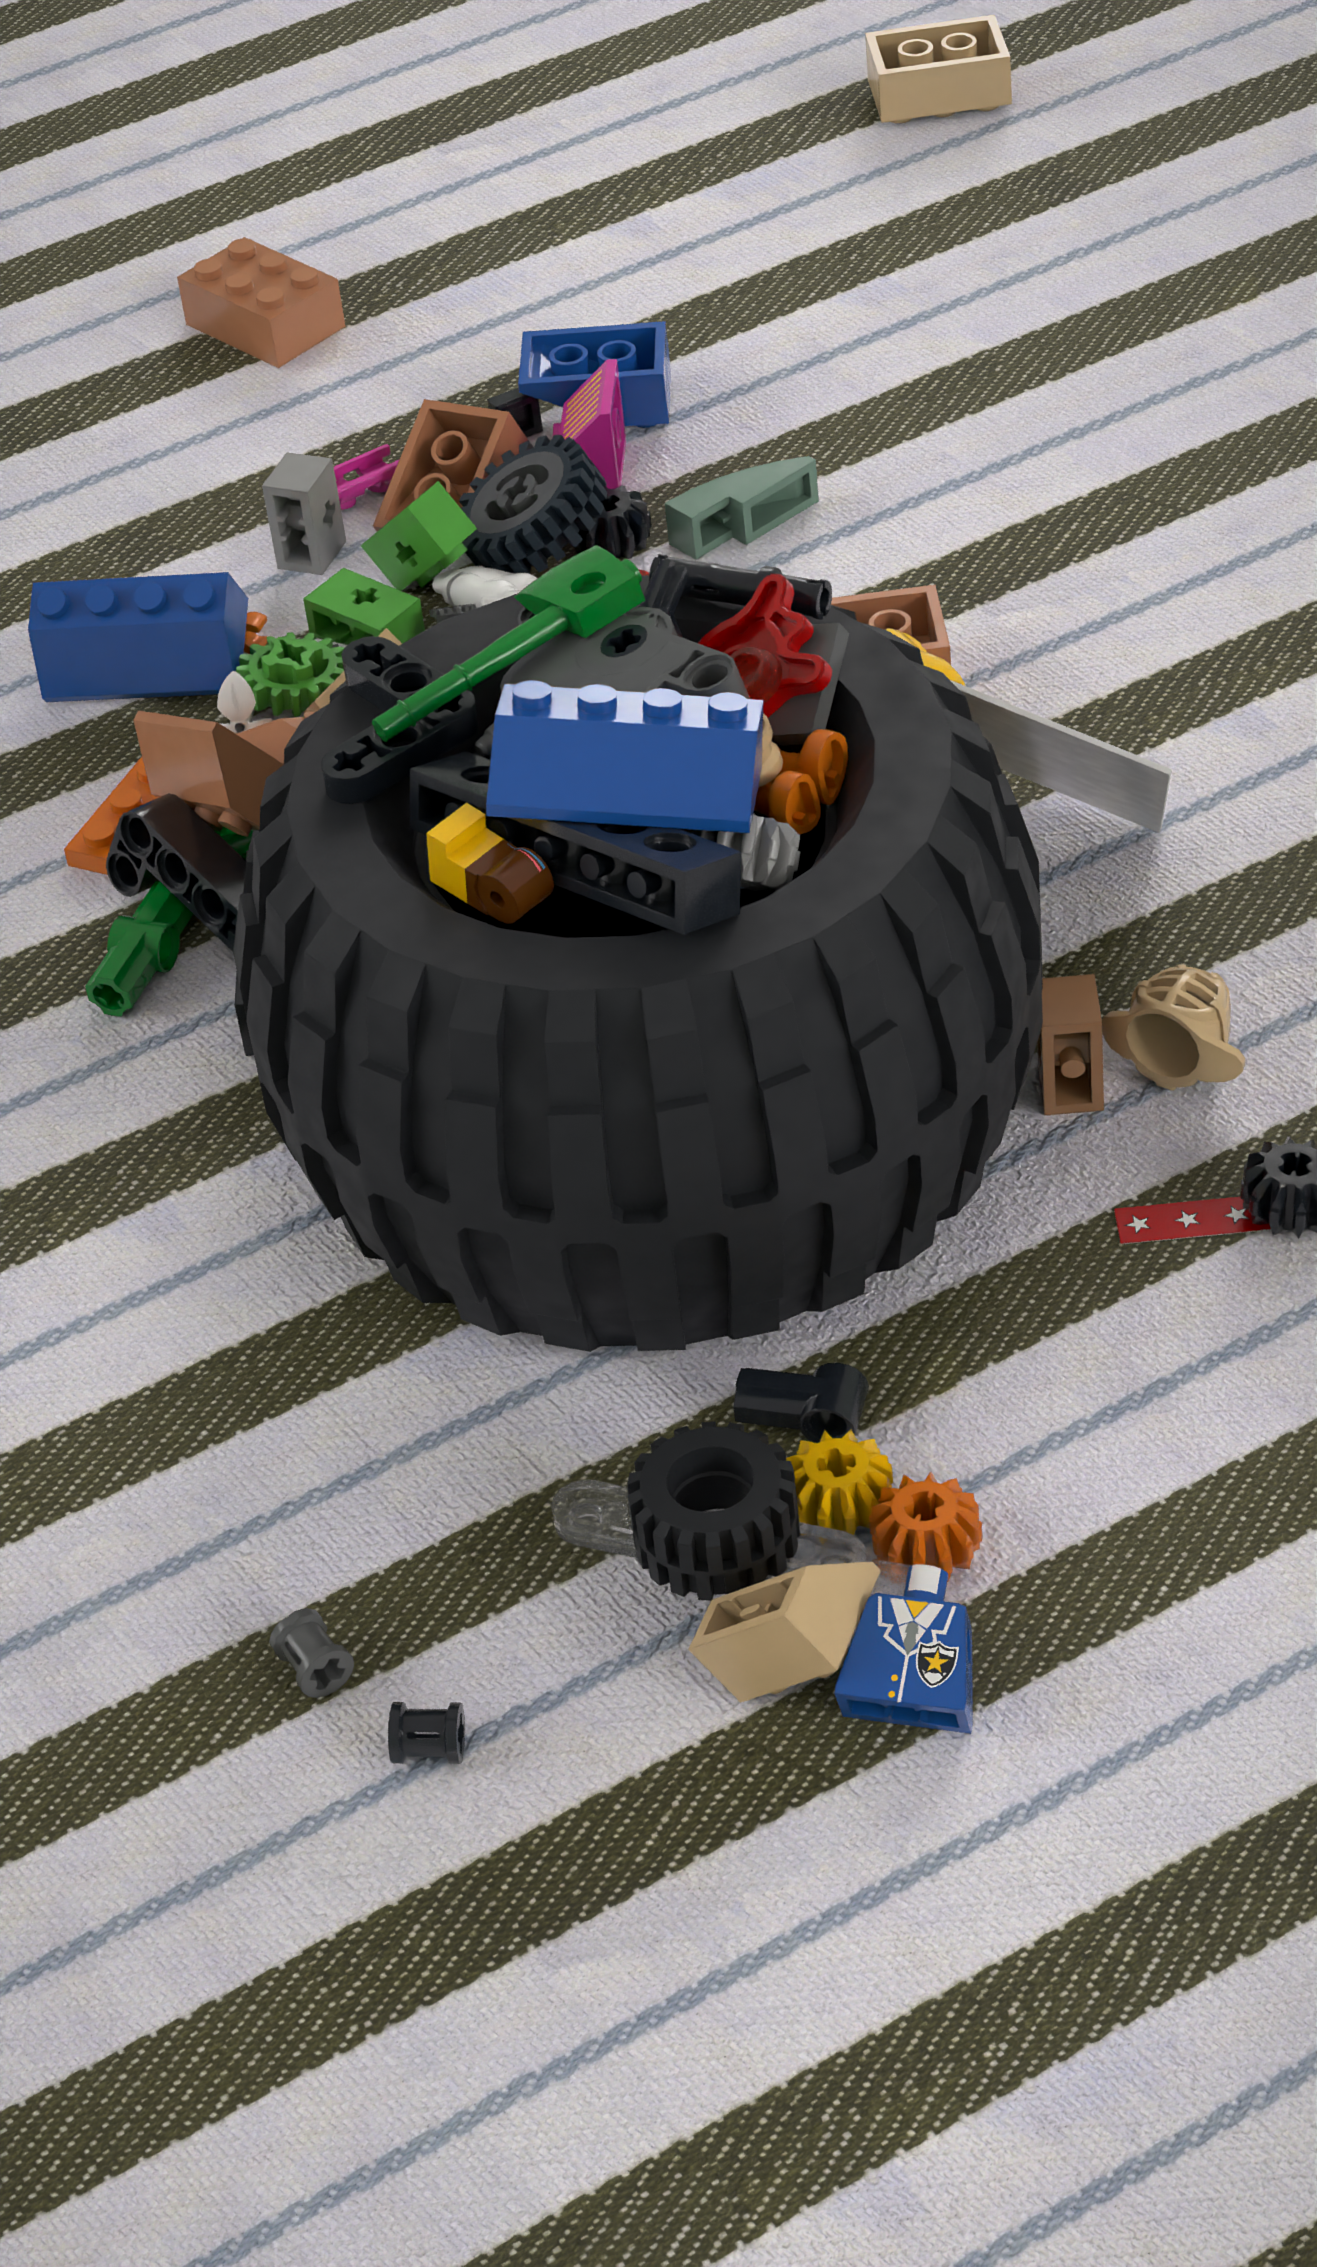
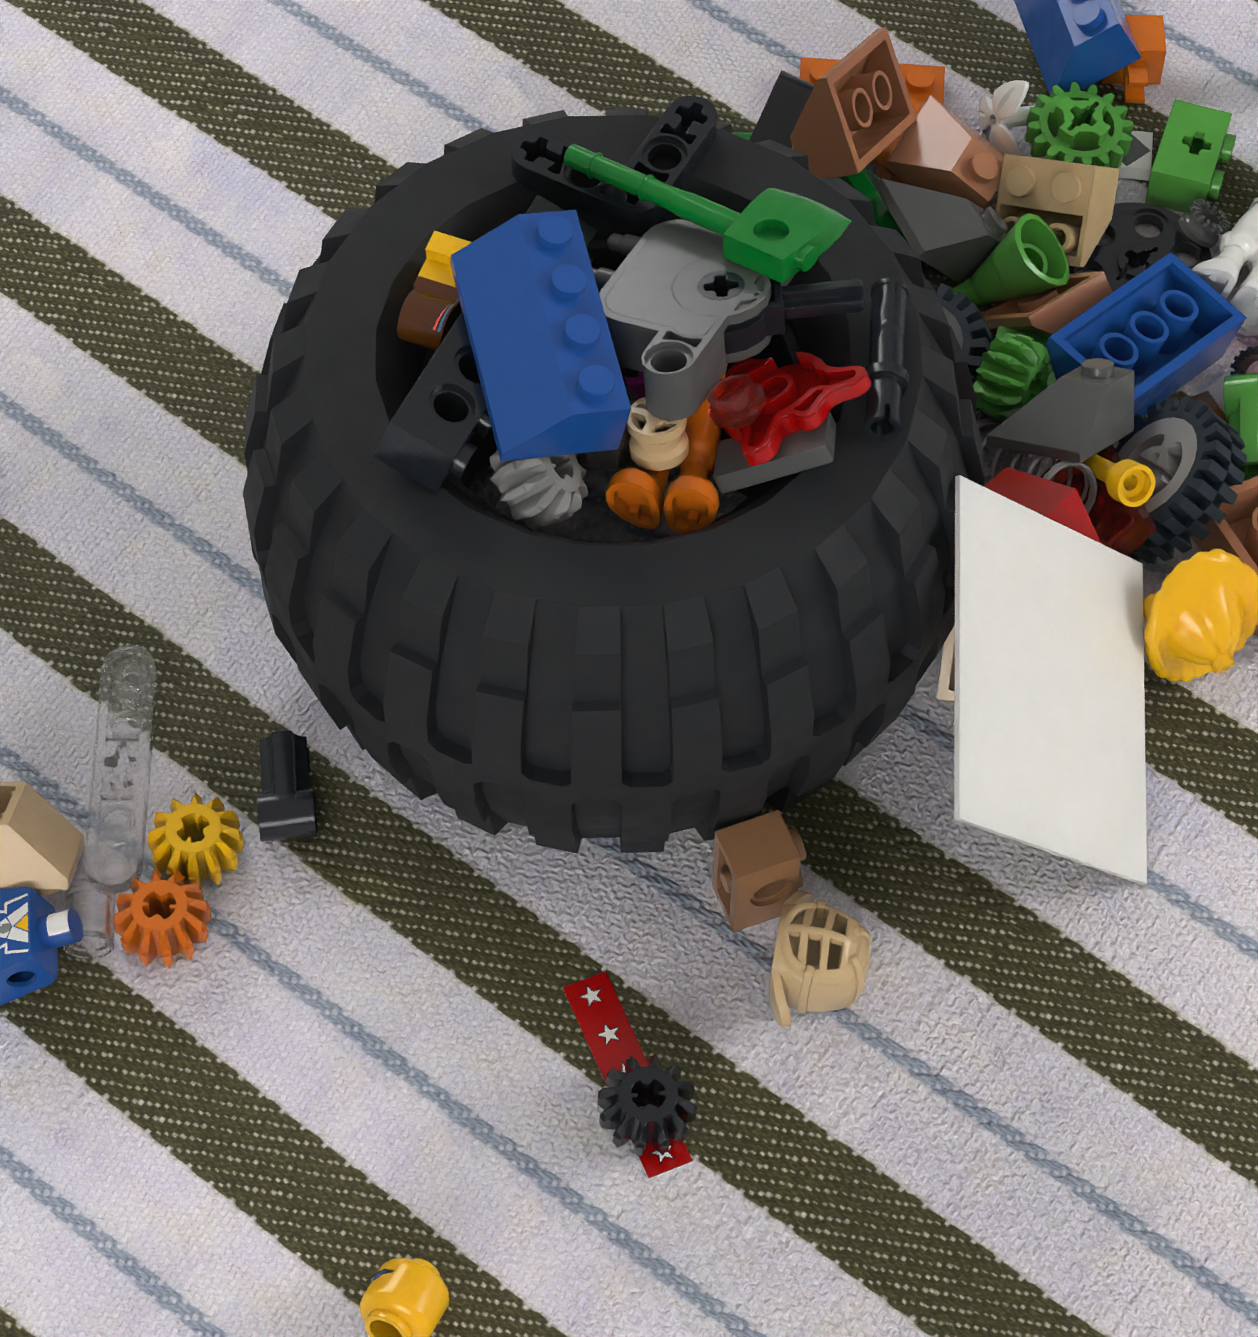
camera: 65 degrees right, 15 degrees up
(707, 1472) = (94, 716): black tyre -> none

